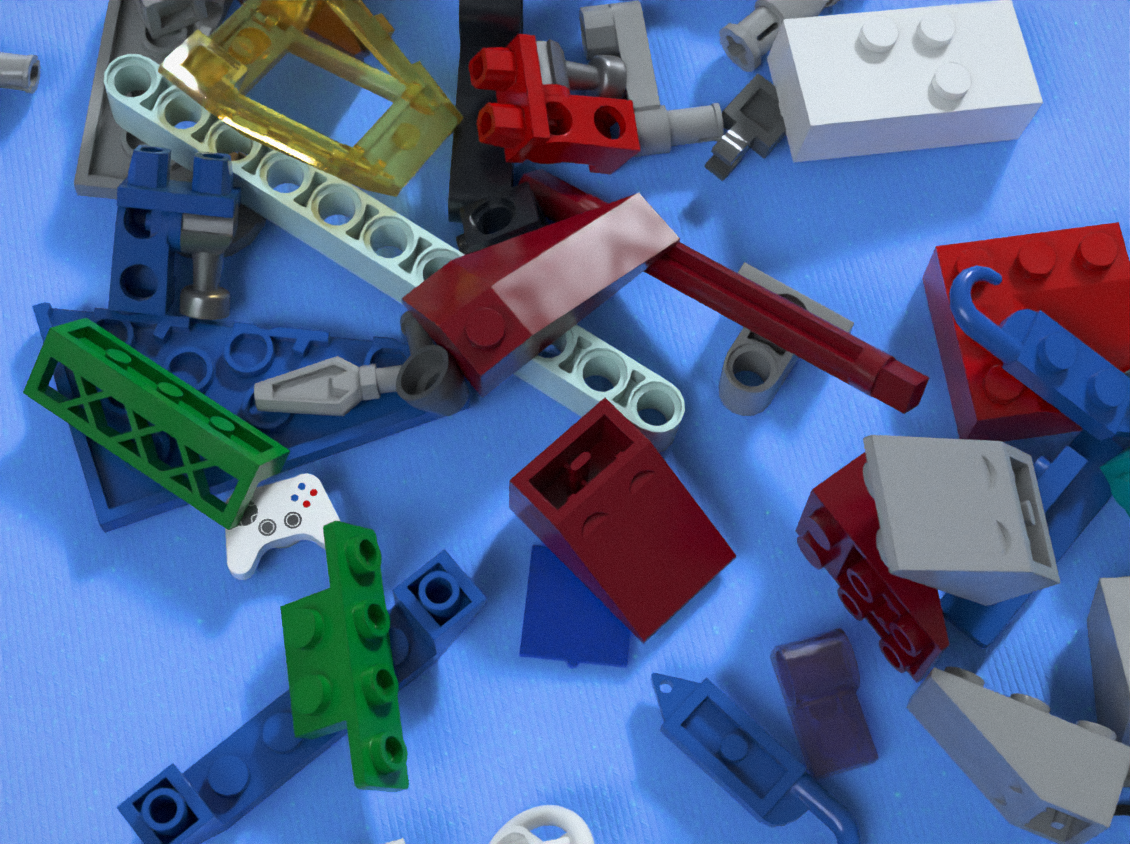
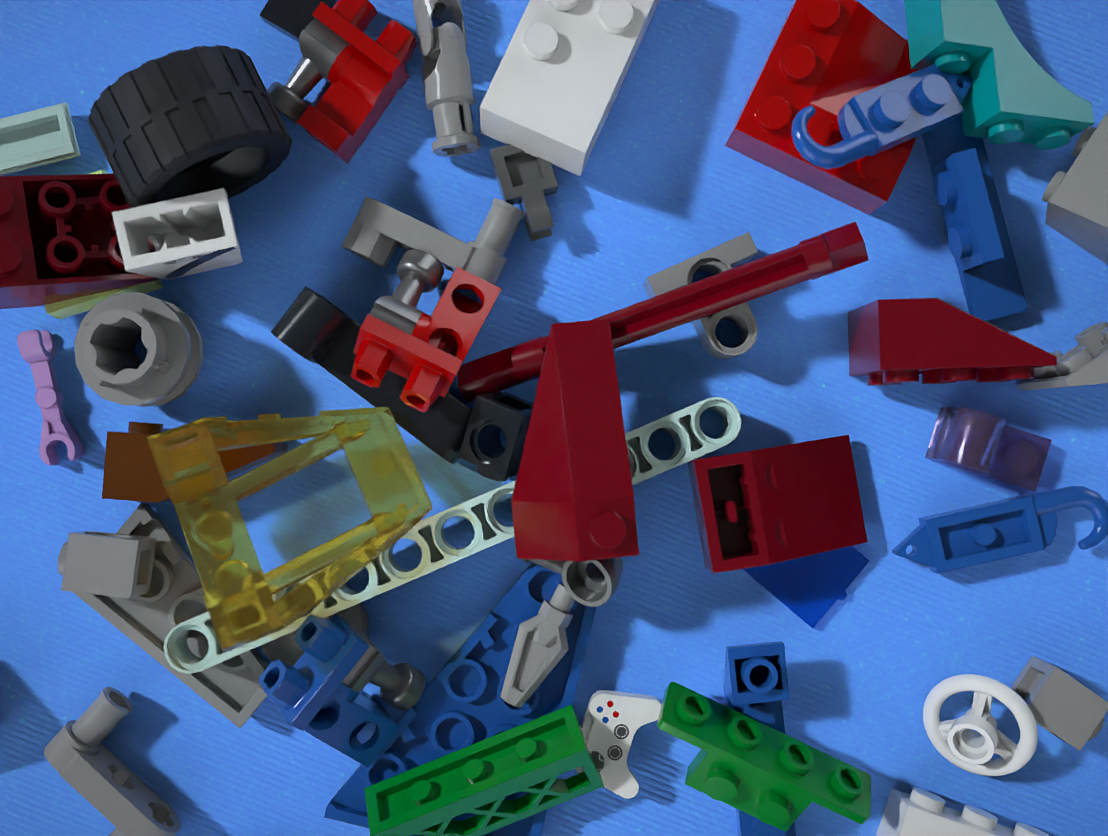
camera: 55 degrees left, 20 degrees up
(960, 516) = (992, 288): light grey slope -> none

